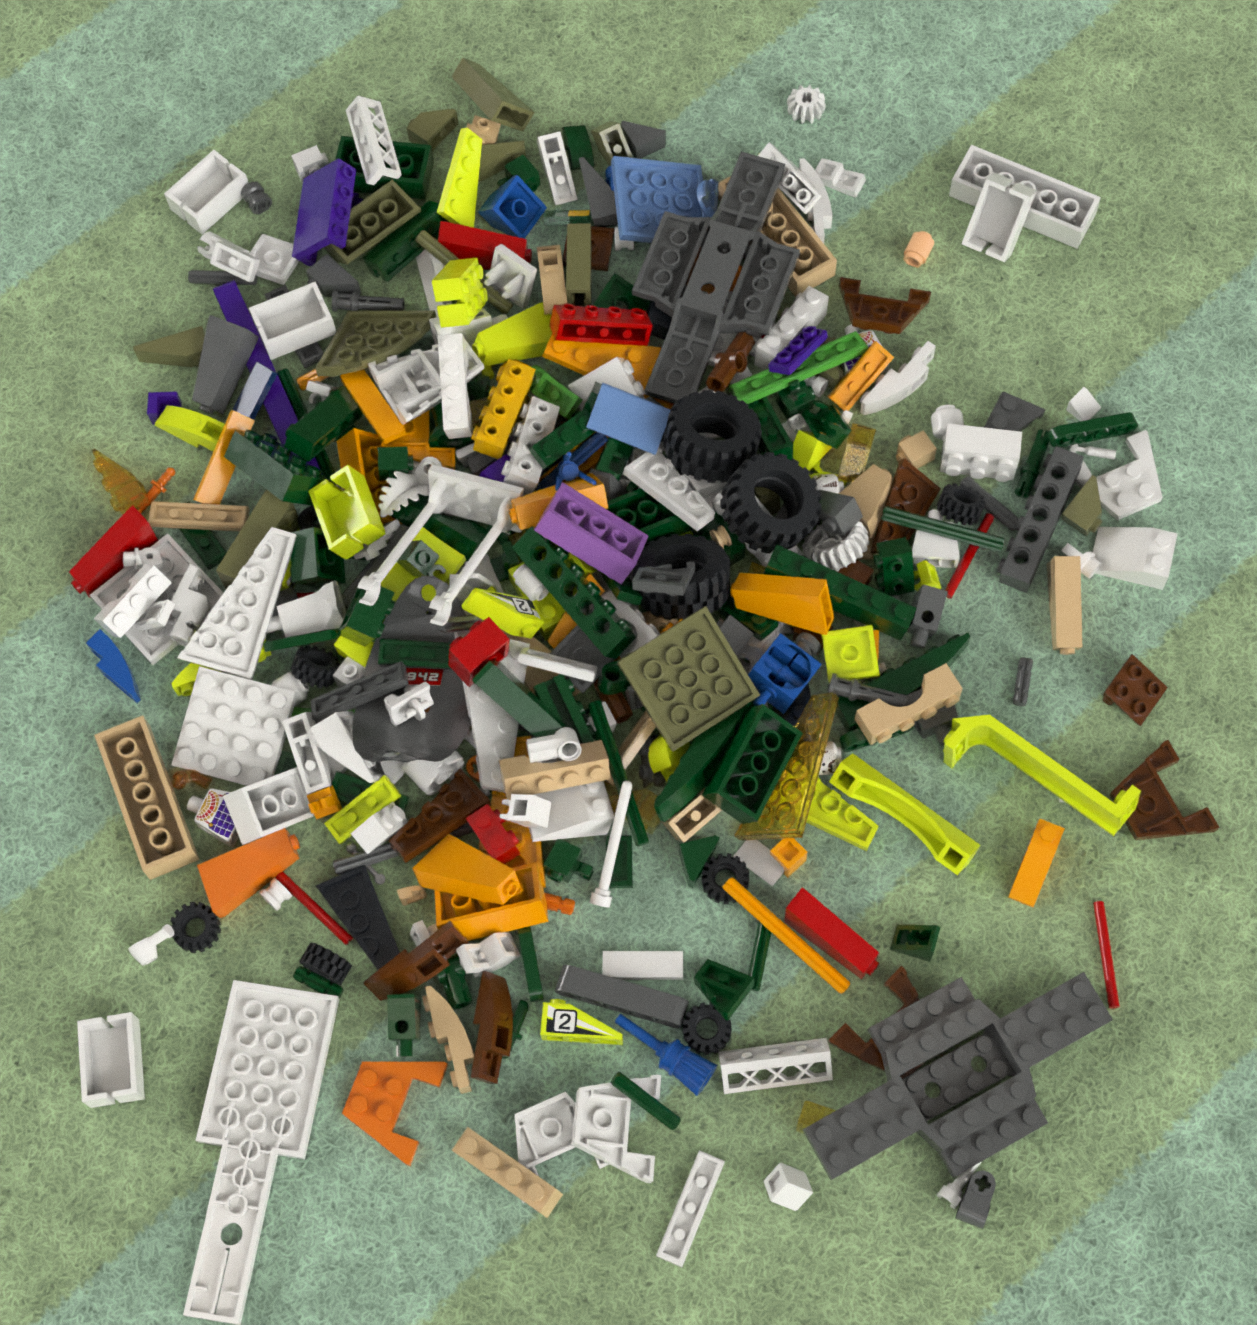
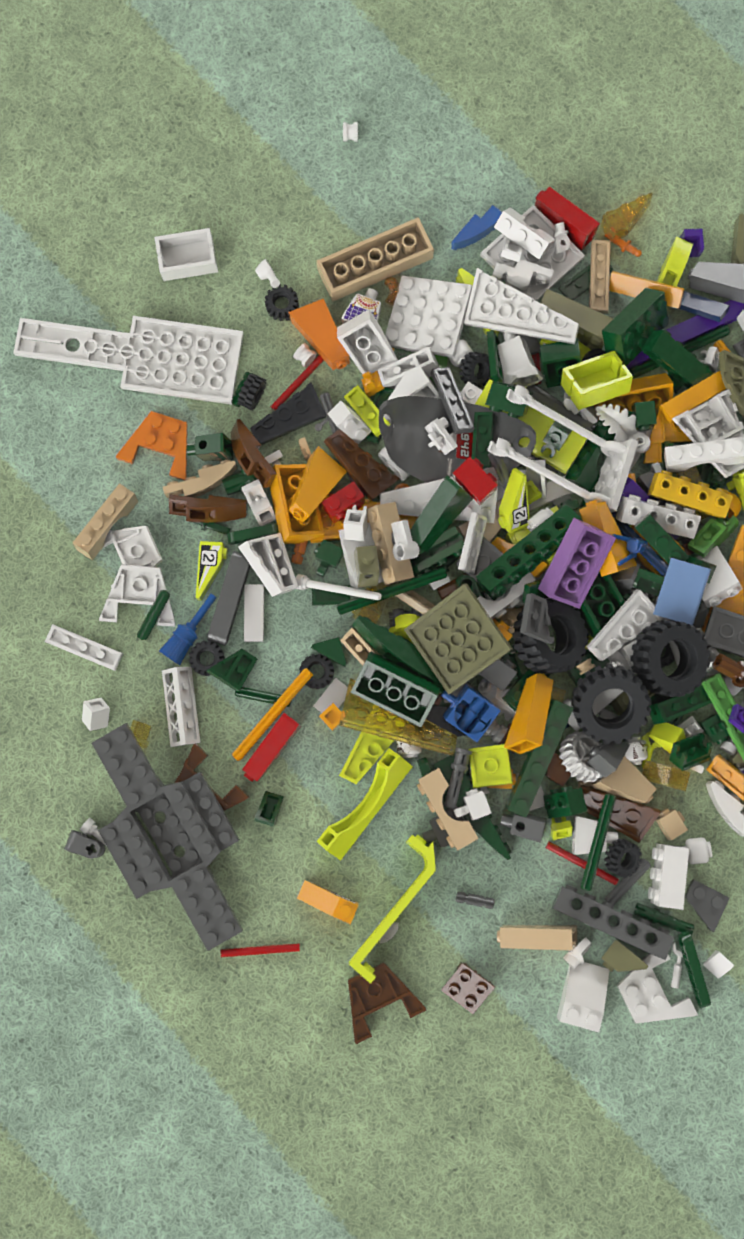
camera: 85 degrees right, 15 degrees up
(576, 934) = (271, 563): none -> white wedge
(586, 795) = (366, 563): none -> olive torso
(903, 670) = (475, 805): none -> white brick

